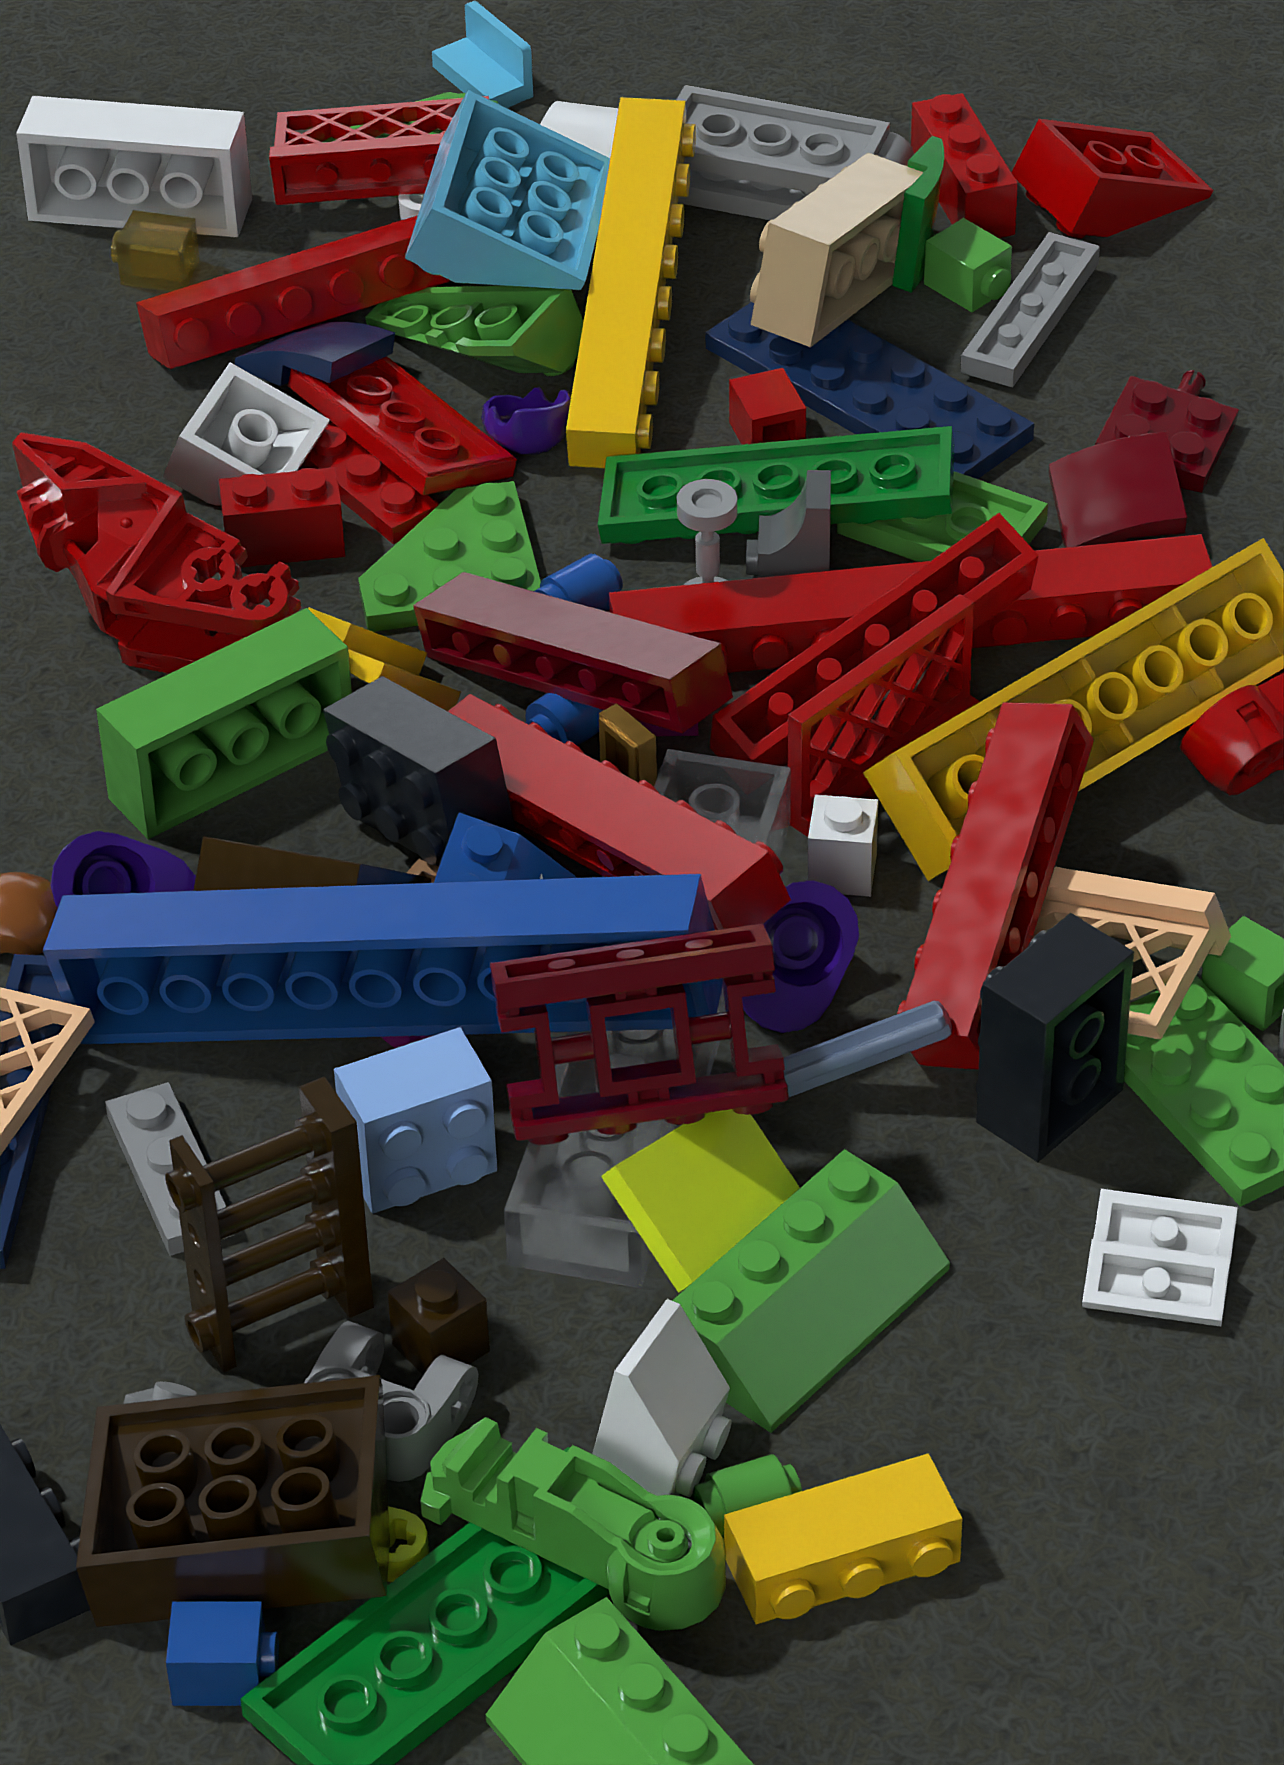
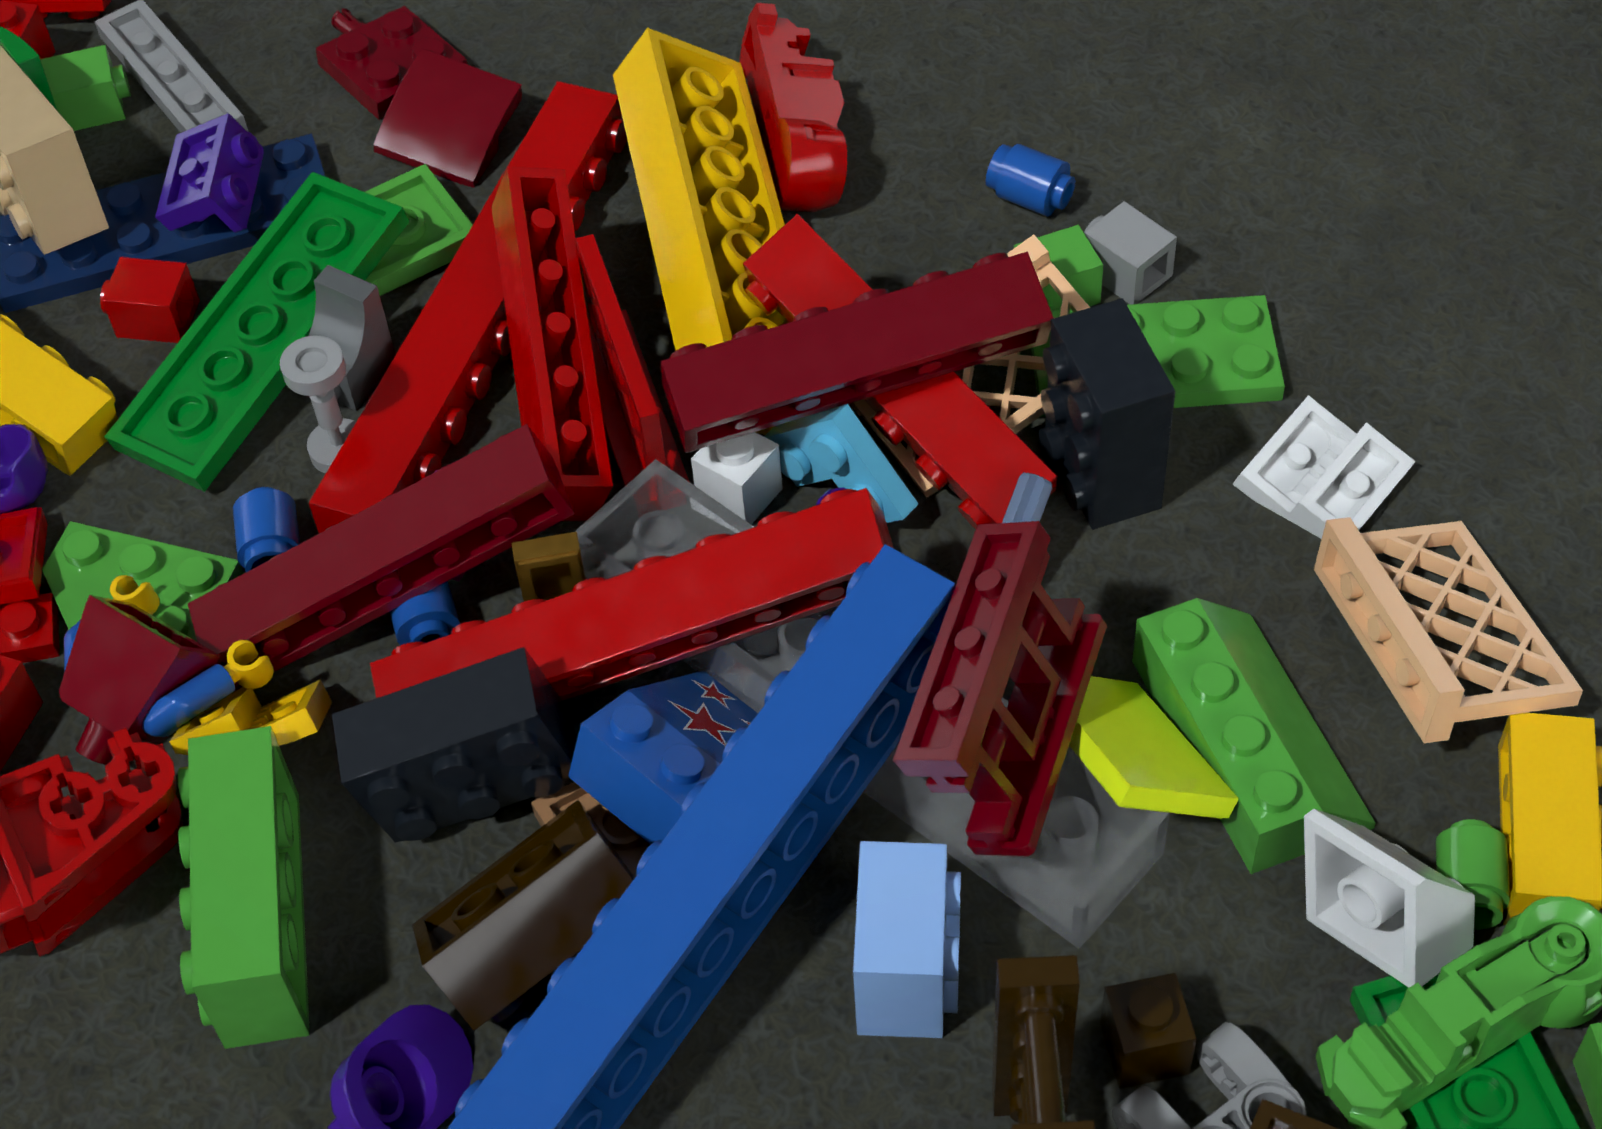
camera: 60 degrees left, 10 degrees up
(376, 571) = (143, 673): none -> dark red torso
(890, 877) = (840, 449): none -> medium azure plate
(914, 380) = (211, 173): none -> dark purple bracket
(957, 812) = (855, 350): none -> dark red brick
(988, 1329) = (1396, 631): none -> light nougat fence

